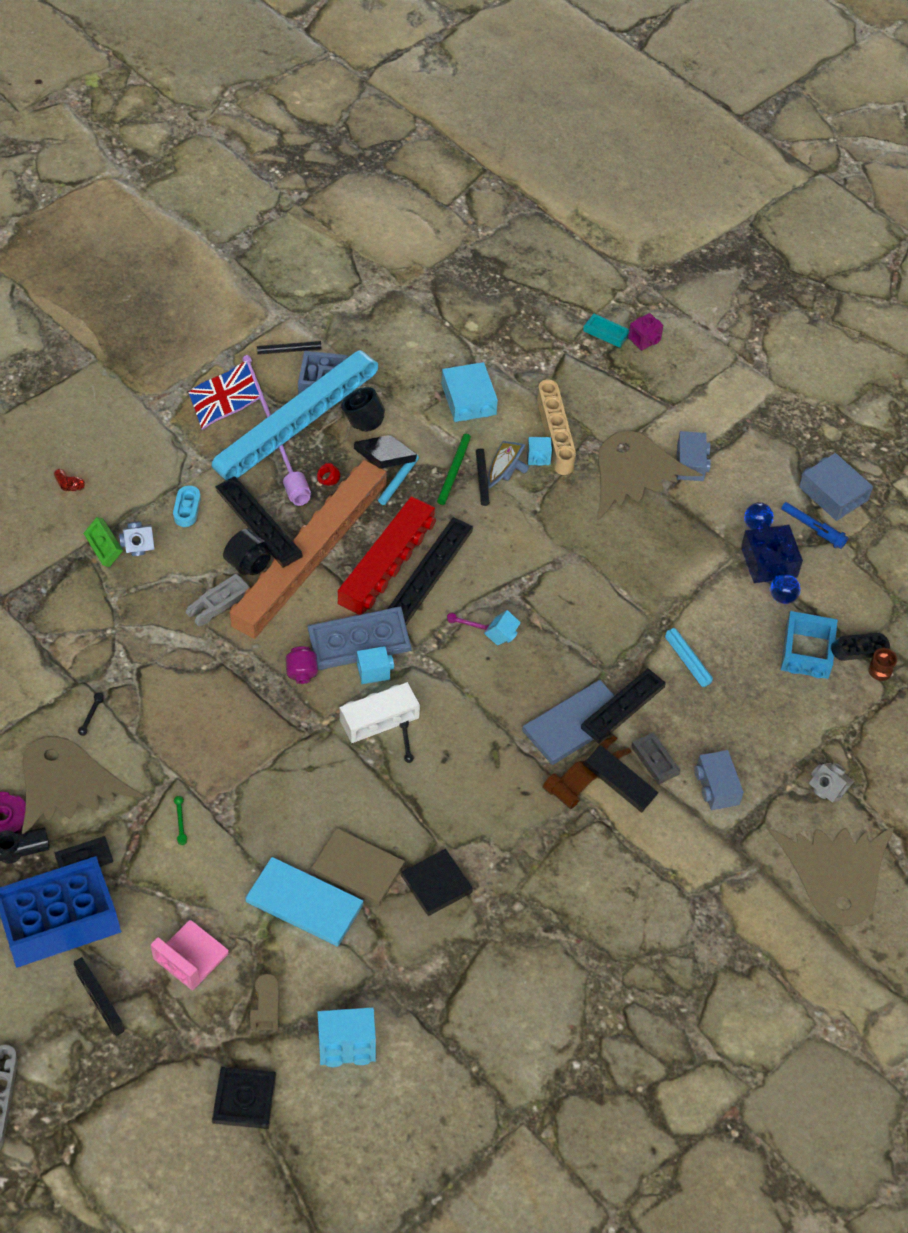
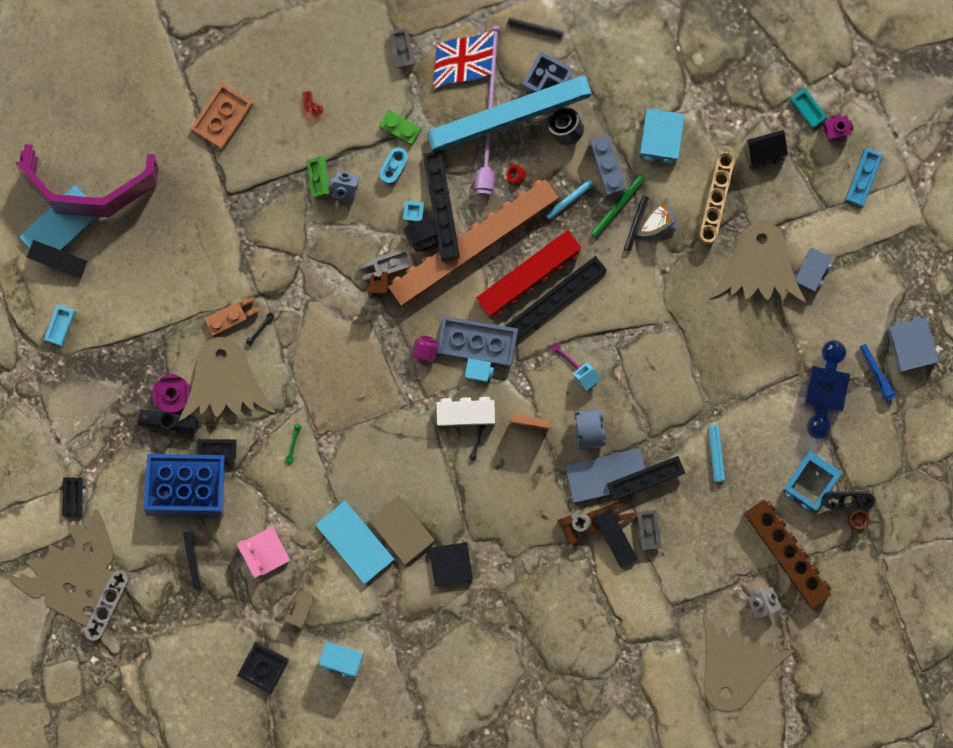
camera: 25 degrees right, 30 degrees up
(49, 712) = (230, 316): none -> nougat hinge
(151, 402) = (402, 48): none -> flat silver plate
(179, 472) = (400, 127): none -> bright green plate
(219, 616) = (379, 289): none -> reddish brown hinge
(223, 536) = (413, 211): none -> medium azure plate
(385, 451) = (567, 174): black tile -> none
(425, 433) = (607, 166): none -> sand blue brick
(461, 690) = (530, 422): none -> nougat tile
(533, 674) = (589, 429): none -> sand blue brick
(539, 451) = (691, 219): medium azure plate -> none
(573, 765) = (586, 525): none -> light grey bush
(583, 366) = (766, 149): none -> black slope
(696, 368) = (864, 177): none -> dark azure tile
(718, 780) = (685, 566): sand blue brick -> none
(832, 735) = (822, 588): none -> reddish brown brick

